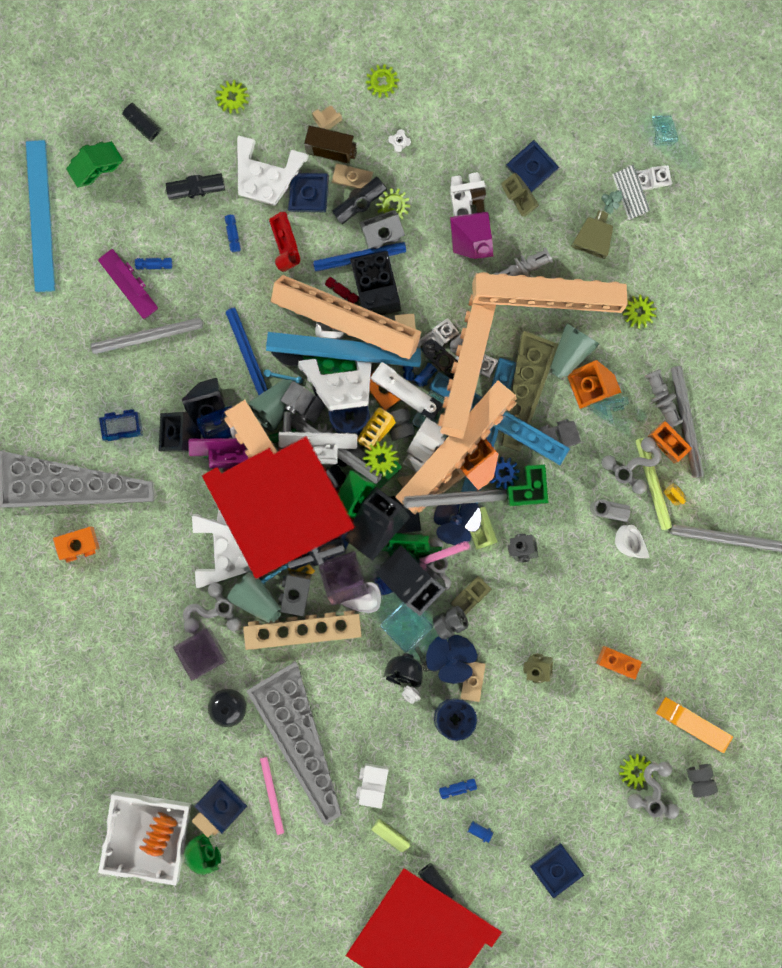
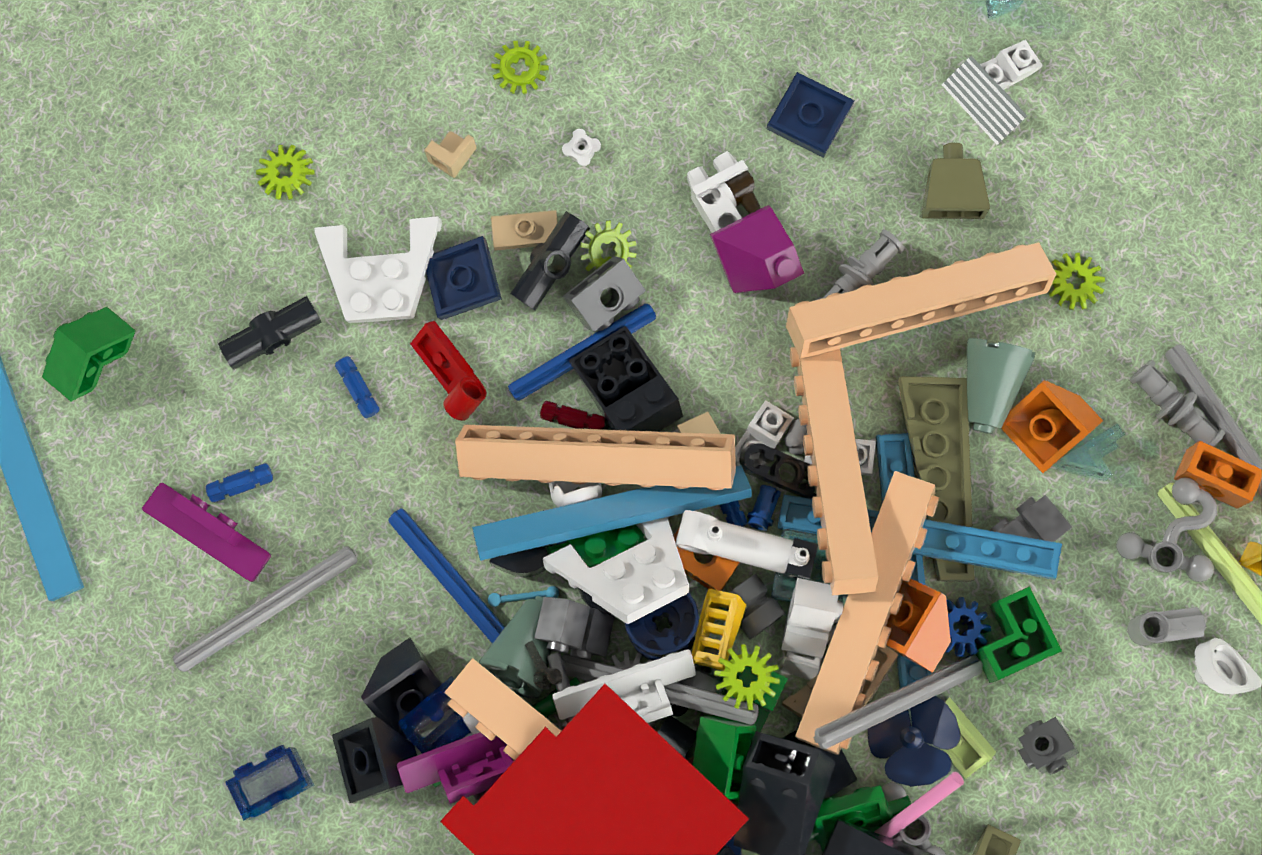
camera: 10 degrees left, 10 degrees down
(141, 121) = (146, 260): black axle -> none
(279, 422) = (543, 673): none -> clear smoke hand
(330, 144) = (471, 188): dark brown window -> none
(520, 194) = (807, 163): olive slope -> none
(612, 201) = (959, 123): sand green plant -> none

